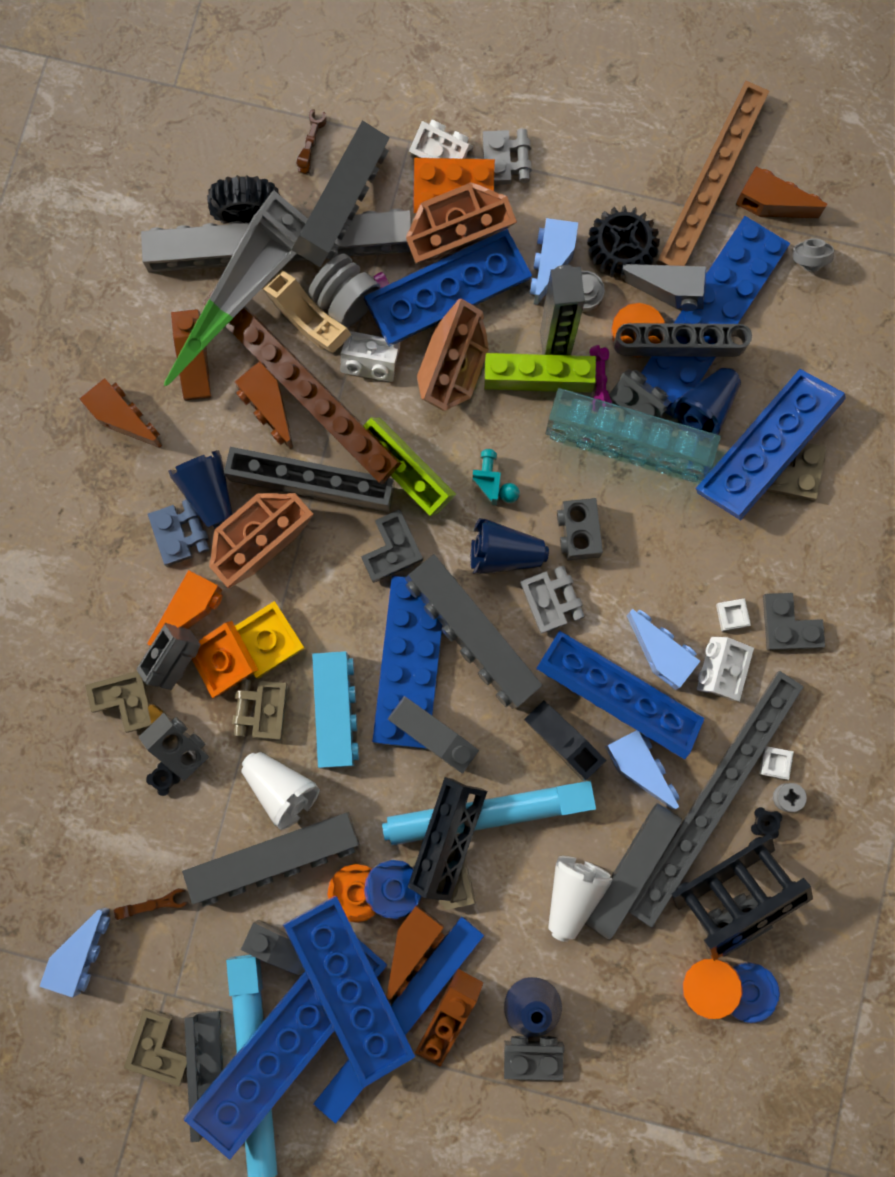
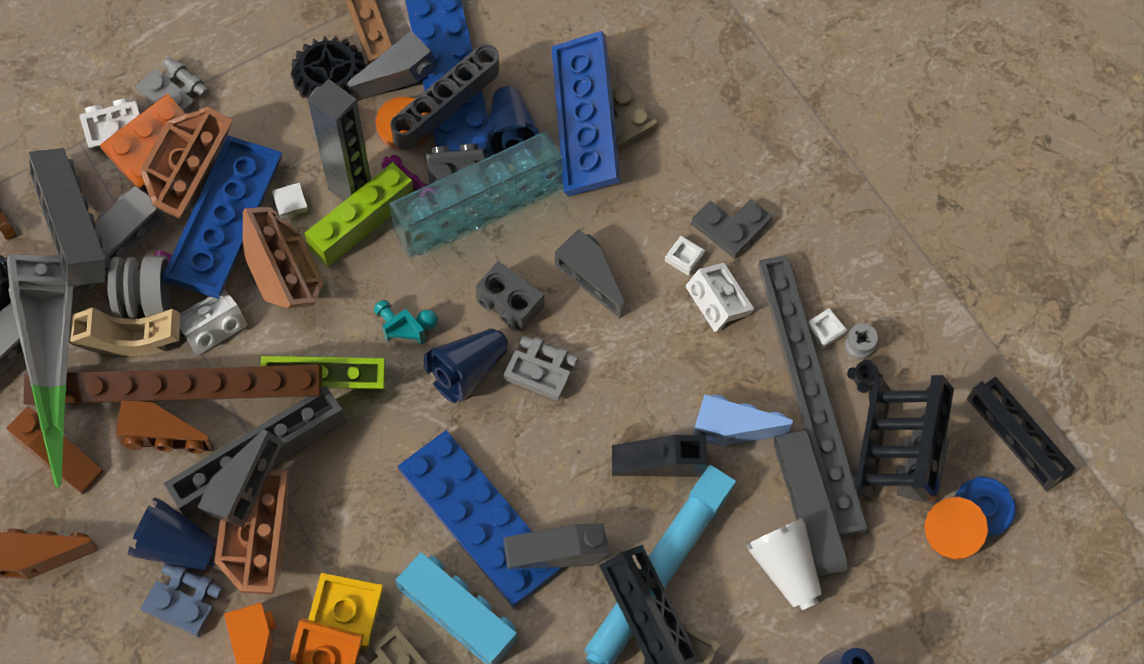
camera: 50 degrees left, 15 degrees down
(273, 494) = (239, 482): none -> dark grey slope
(399, 548) = (384, 445): dark grey plate -> none
(473, 632) = (506, 443): dark grey brick -> none
(504, 316) = (289, 201): none -> white tile
(558, 248) = (281, 118): light blue slope -> none
(621, 694) = (664, 383): blue plate -> none
(656, 555) = (585, 264): none -> dark grey slope
(663, 654) = (664, 327): light blue slope -> none
(825, 969) = (1017, 436): none -> black fence

